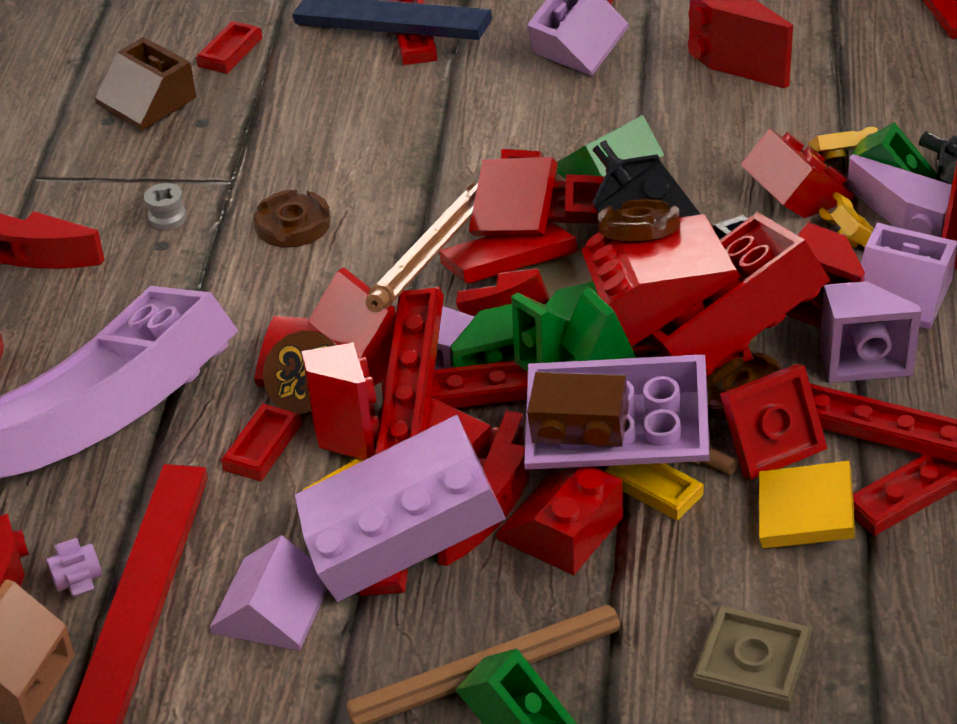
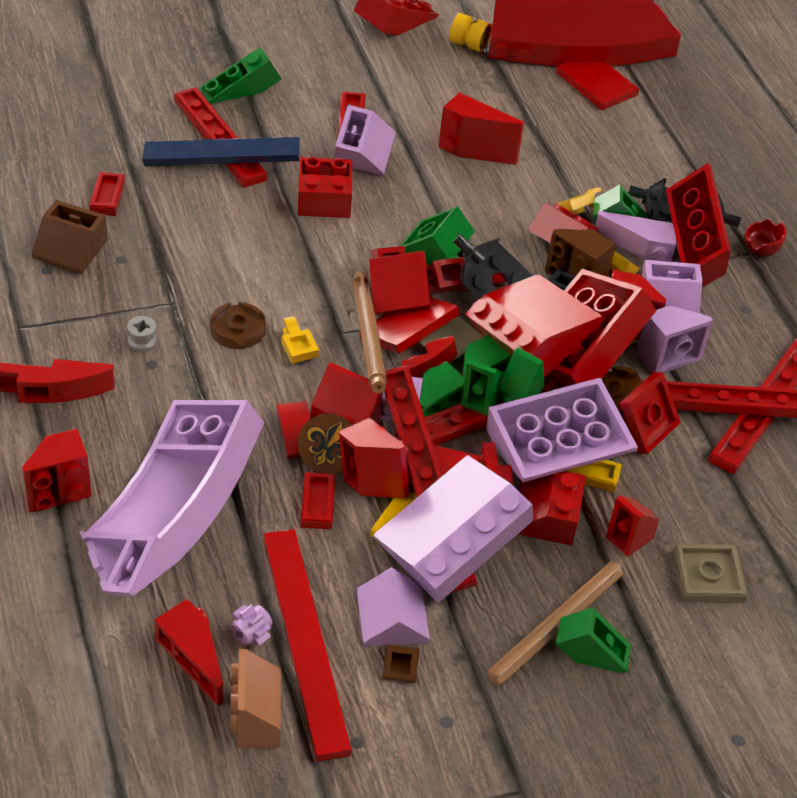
camera: 30 degrees left, 5 degrees up
(242, 664) = (400, 663): none -> reddish brown slope
(350, 249) = (298, 344): none -> yellow plate
(494, 75) = (325, 187): none -> red slope
(578, 409) = (547, 434): reddish brown brick -> none
(639, 220) = (504, 288): reddish brown tile -> none
(662, 560) = (631, 525): none -> red slope
(788, 195) = (577, 250): none -> reddish brown slope
(806, 505) = (691, 464): yellow tile -> none

